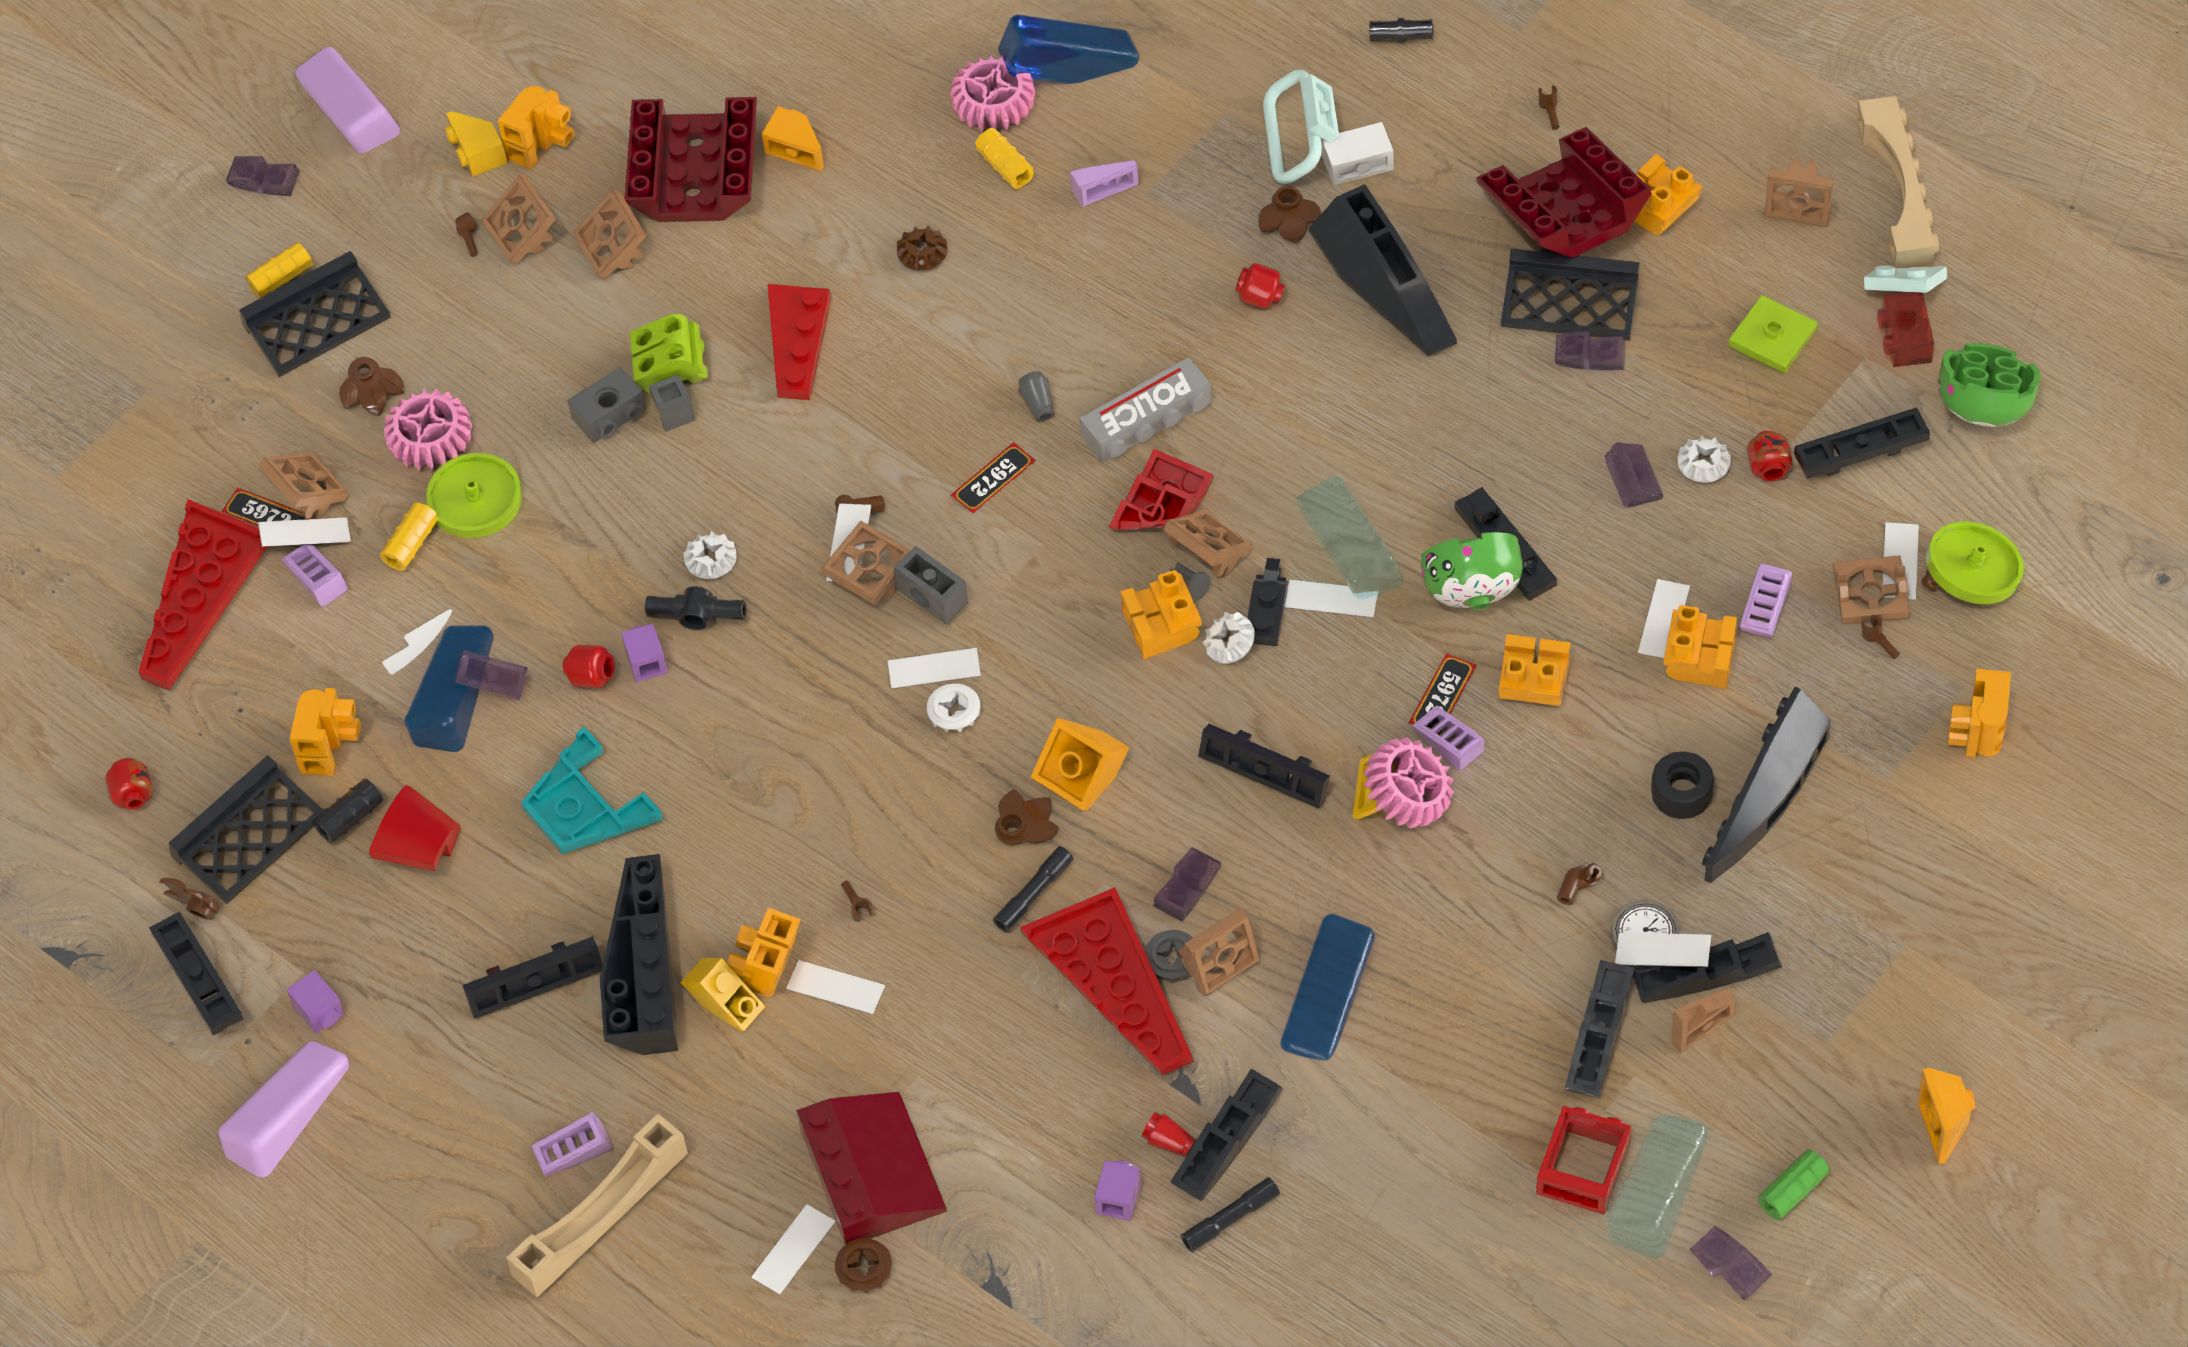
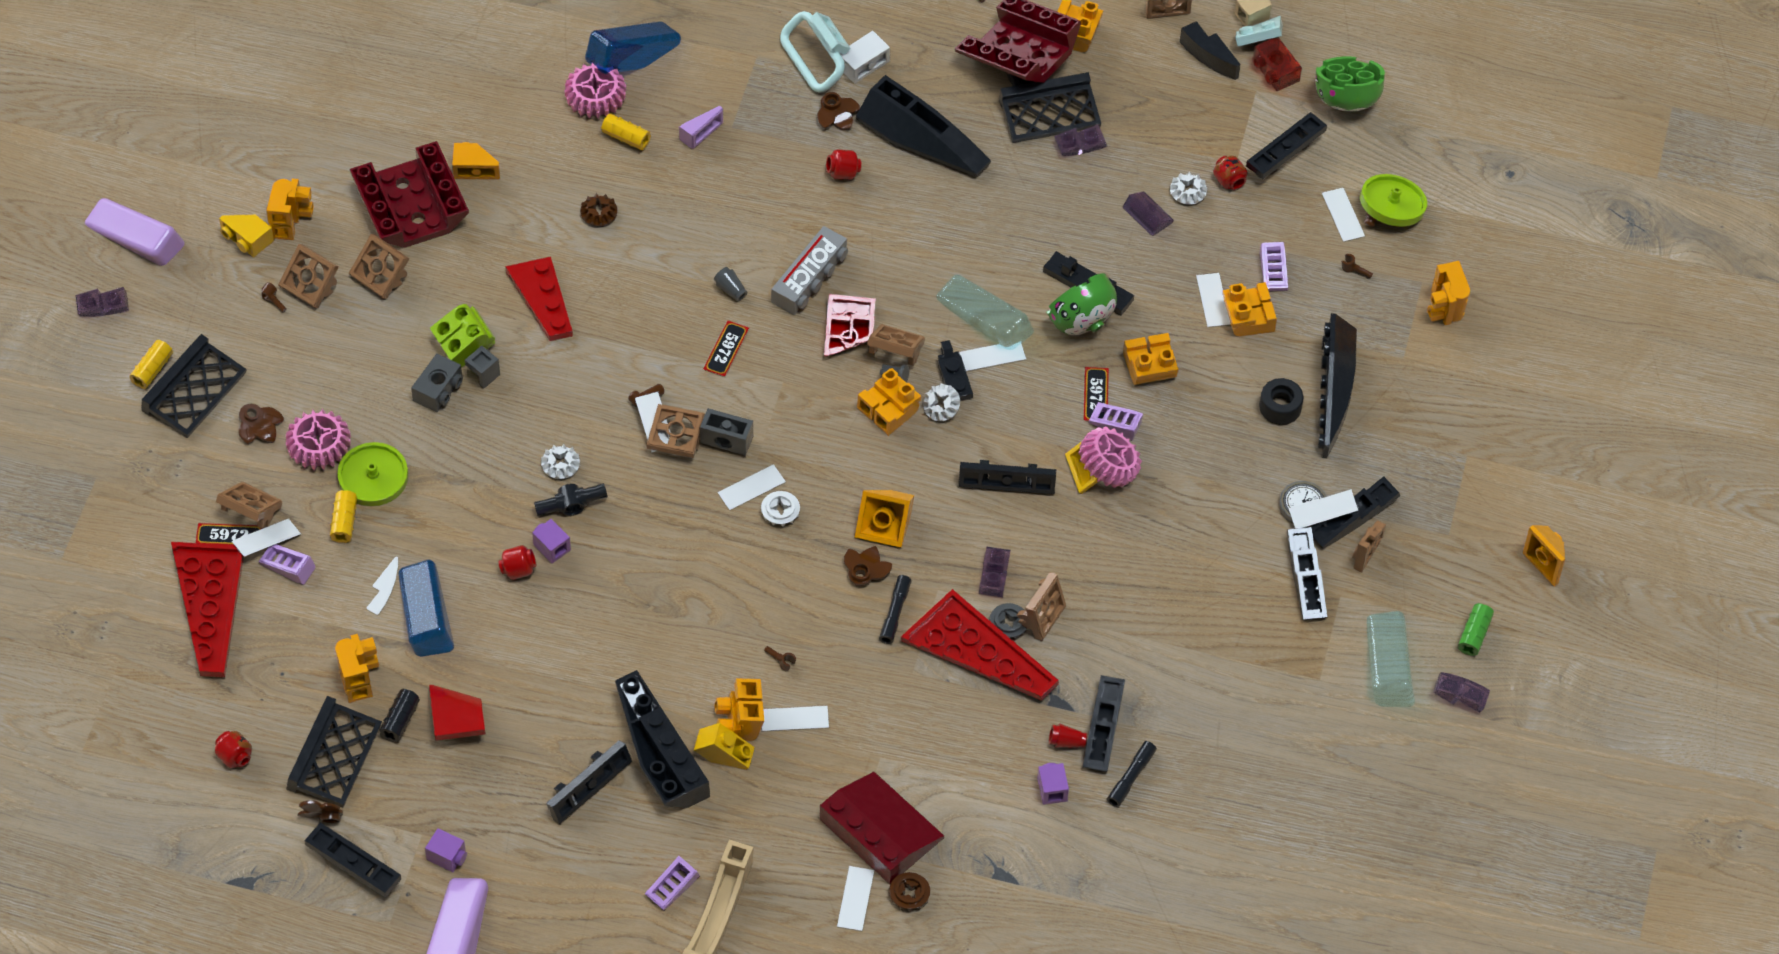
camera: 30 degrees left, 0 degrees up
(490, 674) = (453, 590): clear purple slope -> none
(573, 811) = (556, 662): teal wing -> none
(1327, 987) = (1119, 606): piece -> none
(1575, 1189) = (1339, 680): red window -> none
(1578, 879) = (1244, 483): reddish brown arm -> none
(1773, 334) = (1192, 93): lime plate -> none
(1823, 283) = (1209, 50): none -> black slope
(1855, 614) = (1354, 230): medium nougat piece -> none

